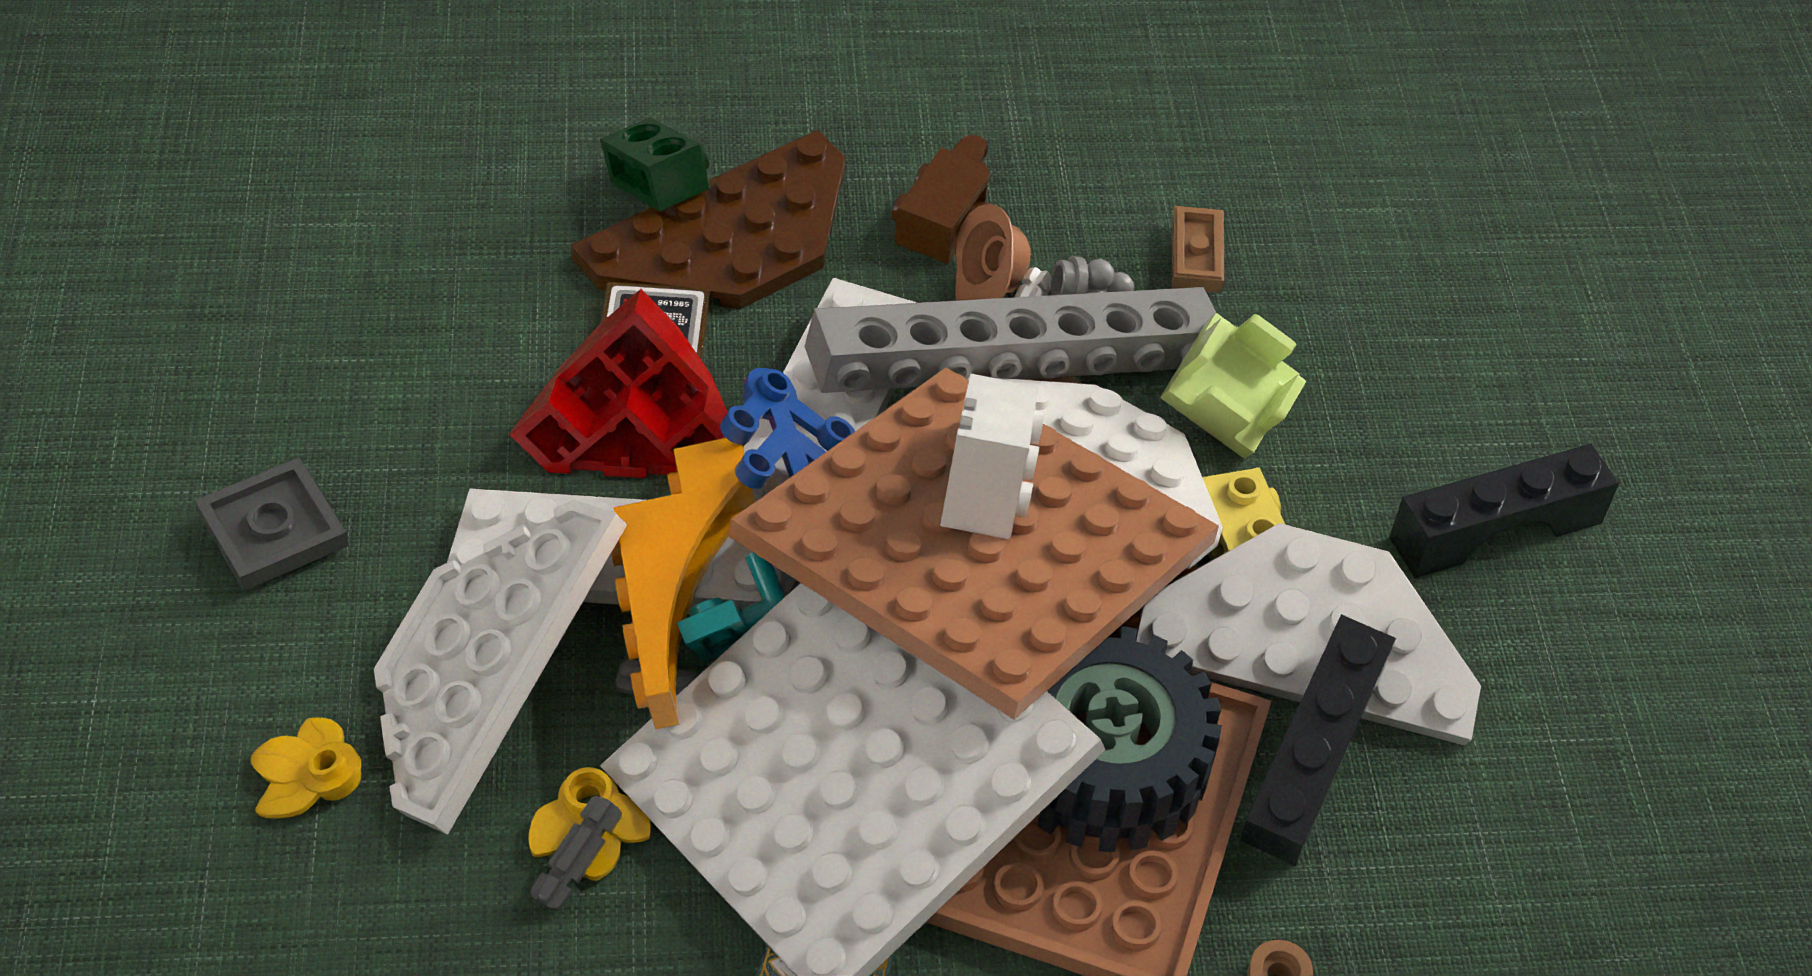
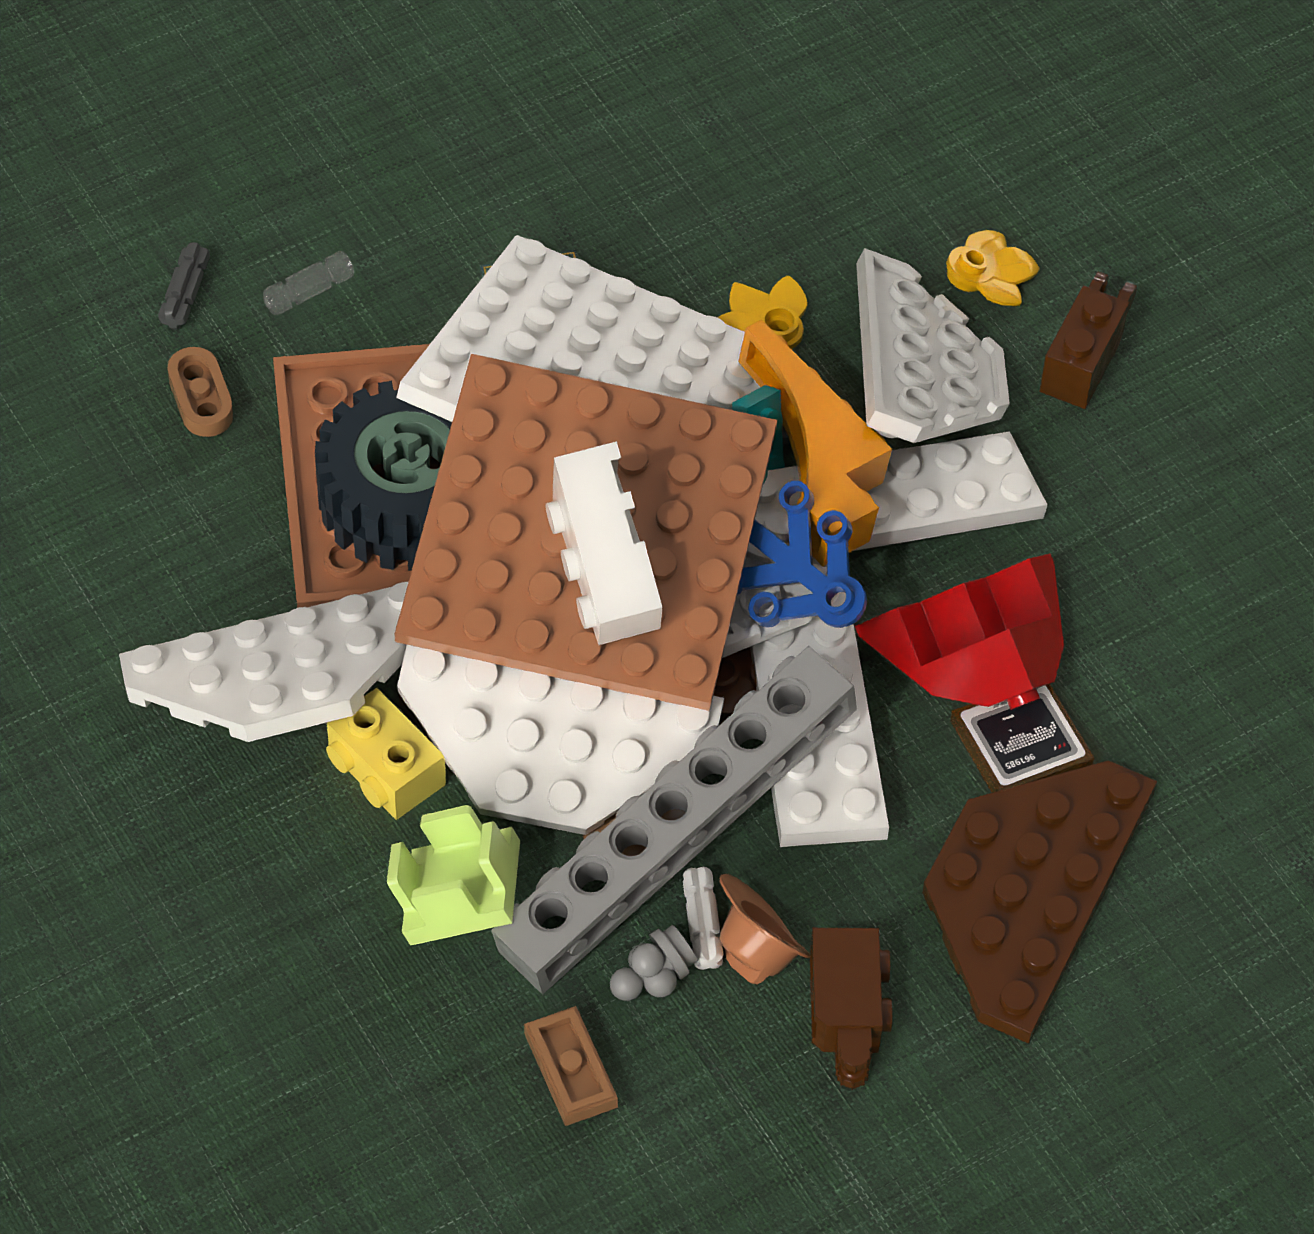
camera: 155 degrees right, 5 degrees up
(271, 523) = (1174, 418): dark grey plate -> none
(284, 623) = (1086, 342): none -> reddish brown hinge
(576, 853) = (755, 279): dark grey axle -> none
(655, 163) = (1146, 872): dark green brick -> none
(1317, 740) = (239, 555): black arch -> none
(1451, 521) = (112, 908): black arch -> none

